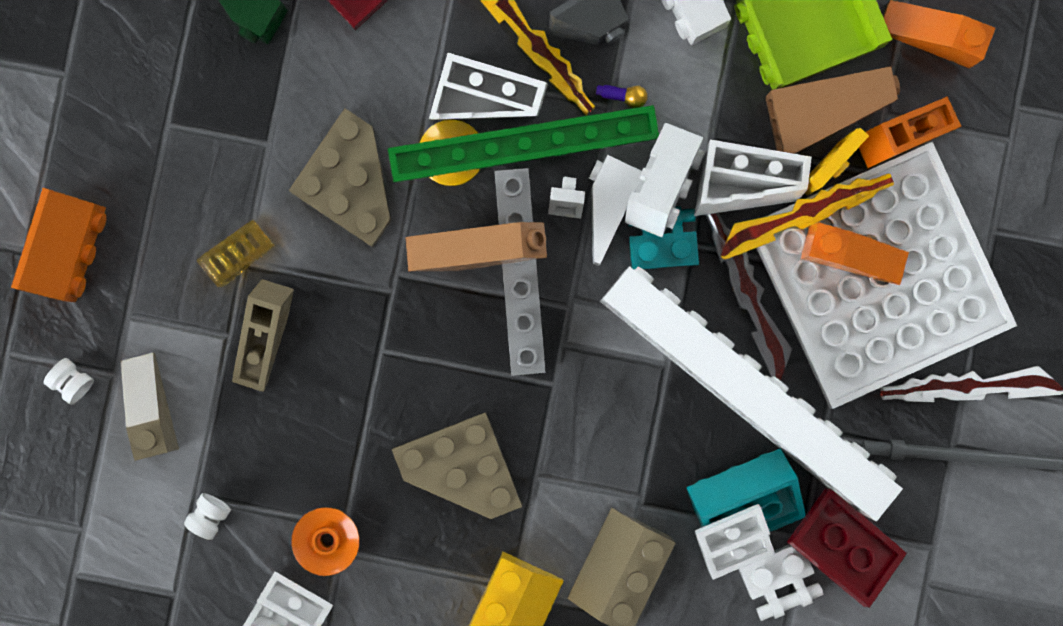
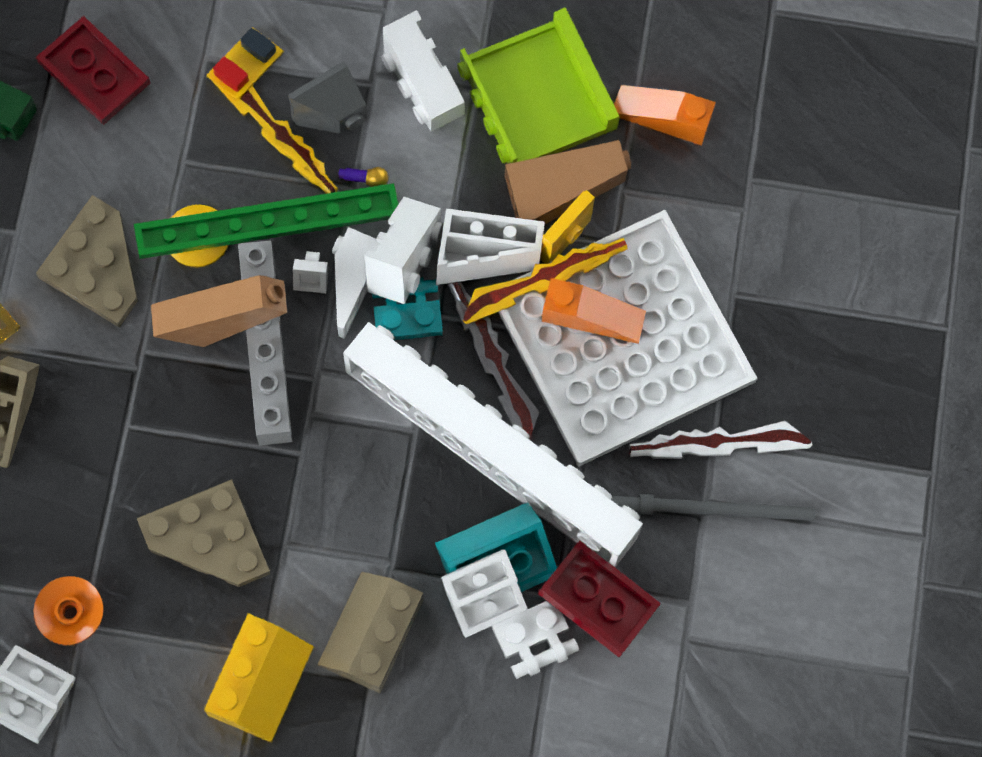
camera: 10 degrees left, 15 degrees down
(484, 91) = (229, 175): white wedge -> none
(908, 131) = (638, 200): orange slope -> none

